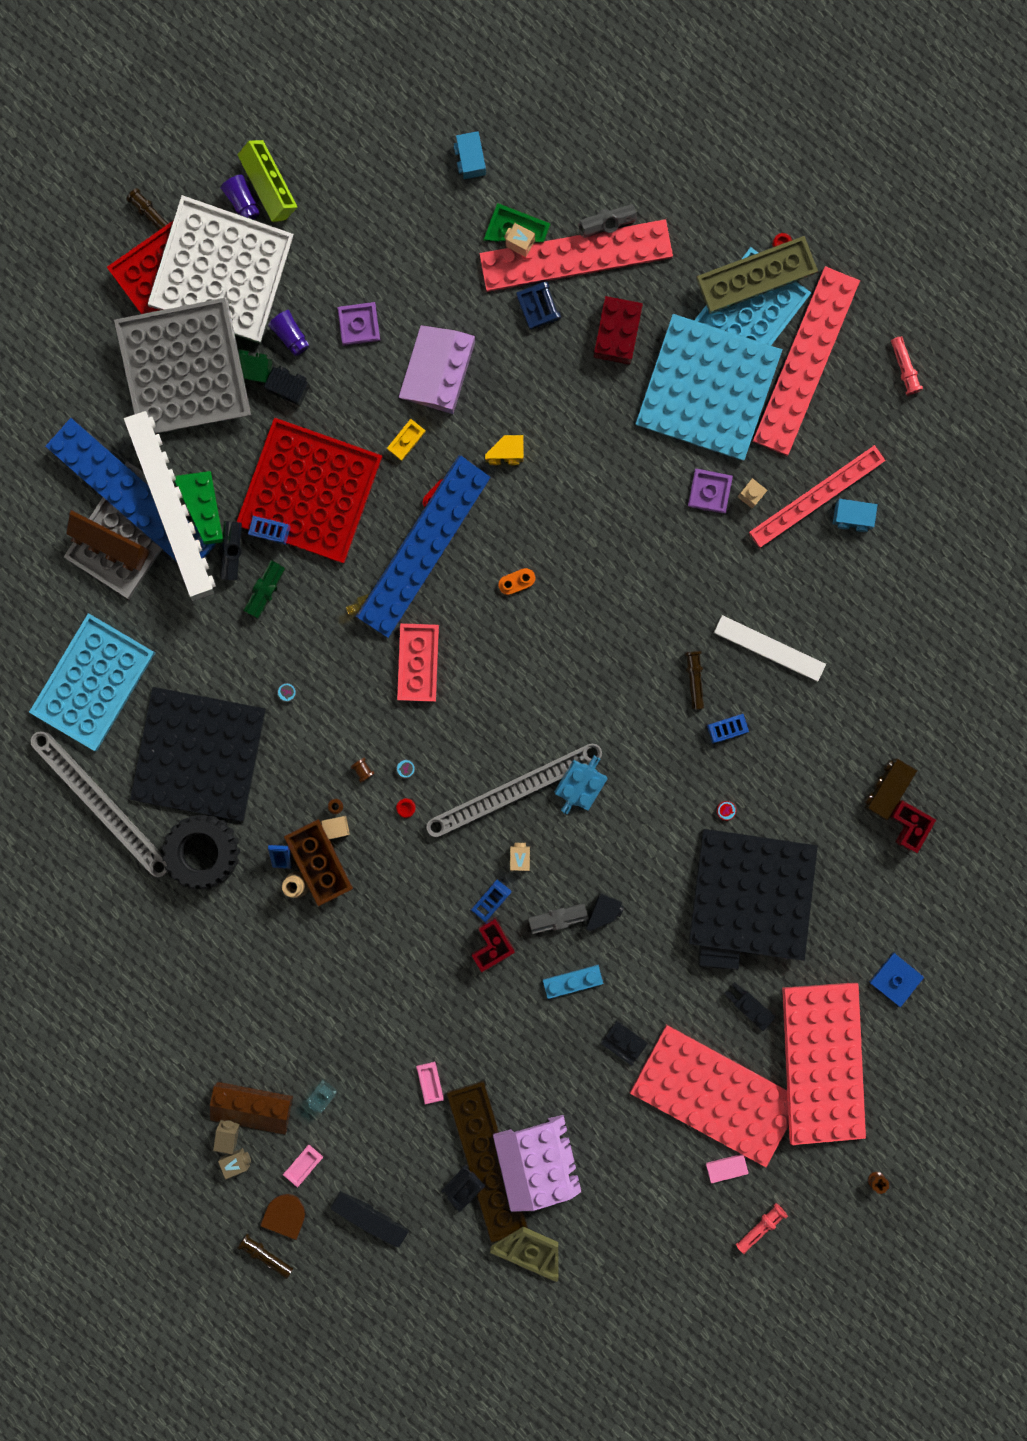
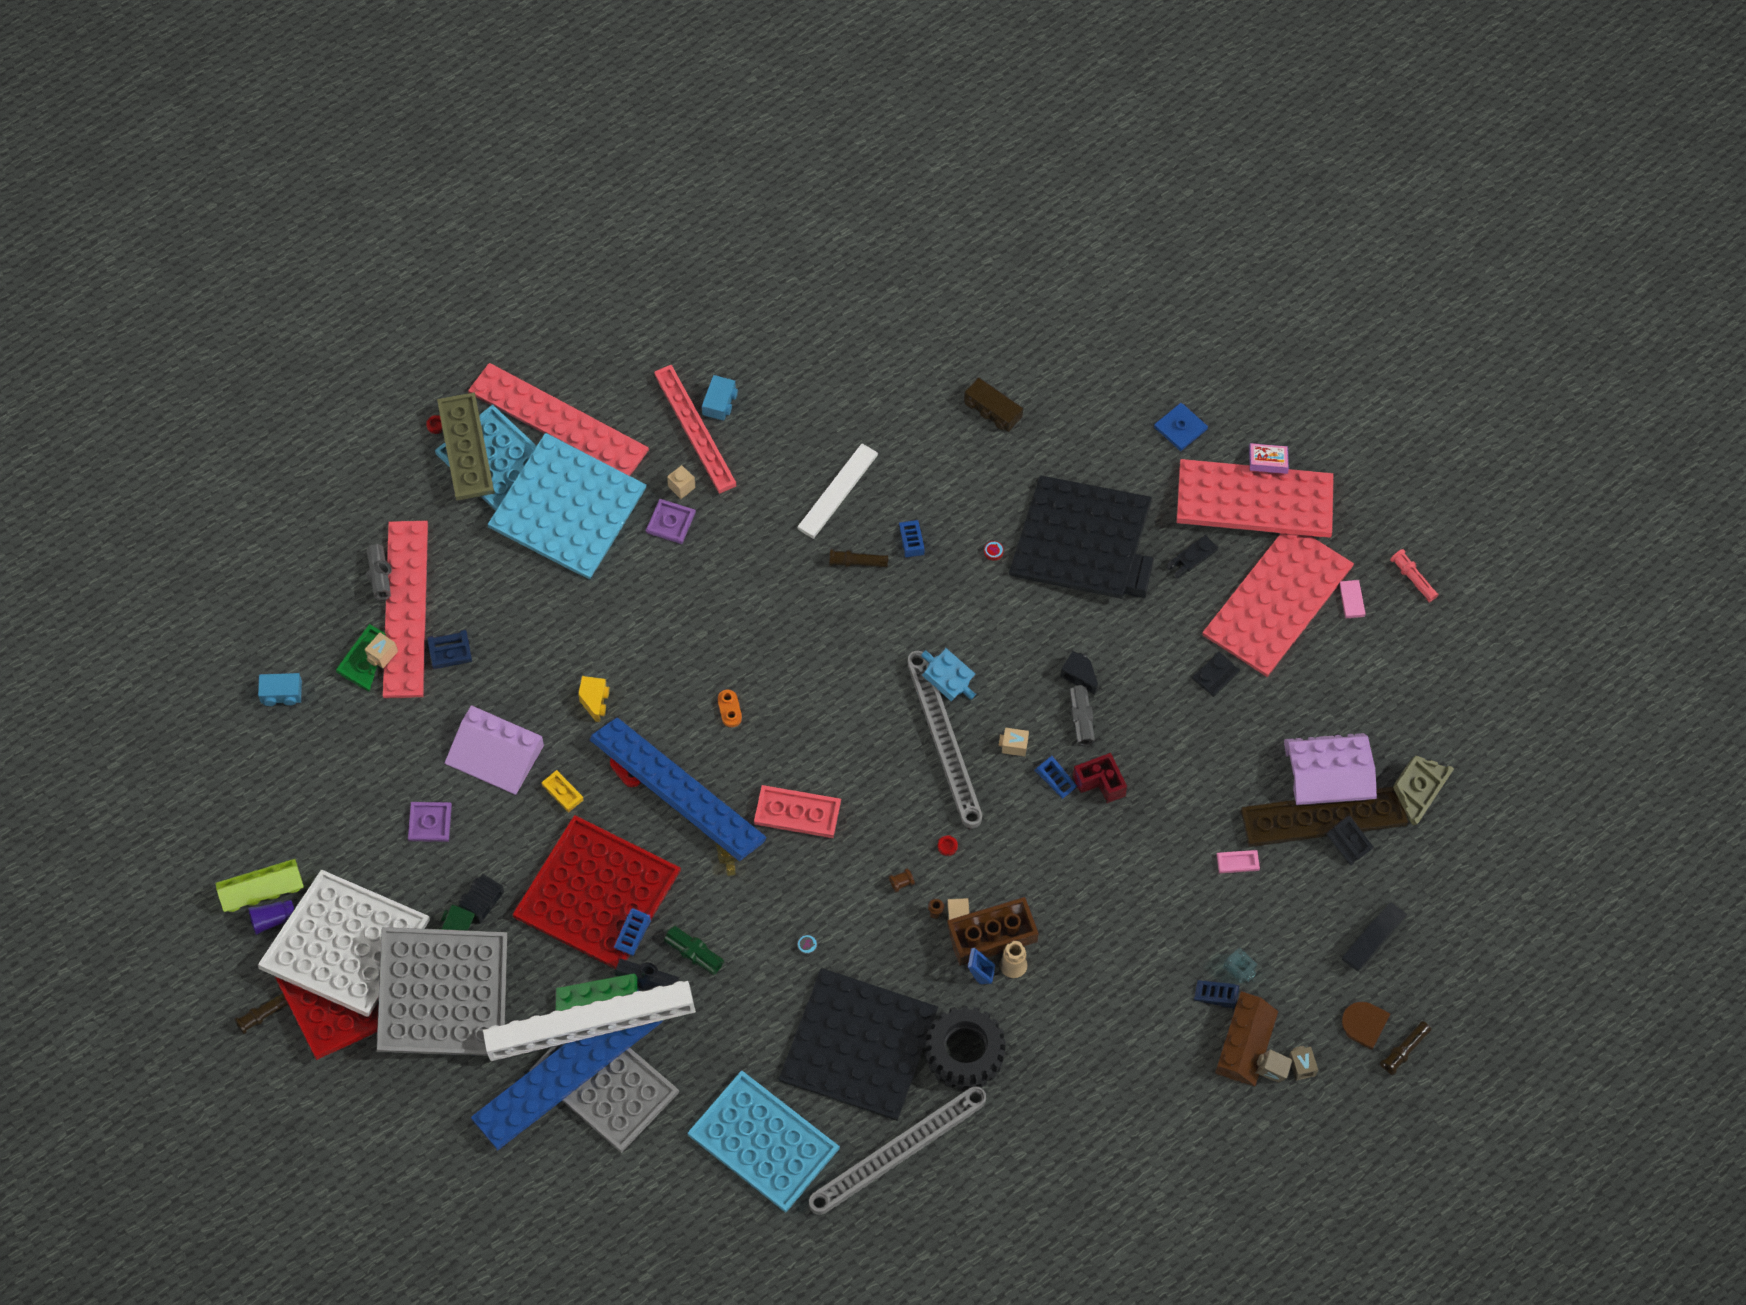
camera: 80 degrees left, 25 degrees down
(104, 540) = (614, 1092): reddish brown slope -> none
(289, 332) = (426, 887): dark purple plant -> none
(293, 1093) = (1225, 987): none -> dark blue slope
(303, 1165) = (1313, 998): bright pink tile -> none
(405, 768) = (906, 840): tile -> none
(573, 981) = (1148, 712): dark azure plate -> none
(618, 330) = (492, 578): dark red brick -> none
(871, 1072) = (1268, 458): none -> tile
(873, 1180) = (1372, 470): reddish brown bush -> none
(908, 374) = (591, 334): coral pin -> none
(916, 826) = (1034, 387): dark red brick -> none

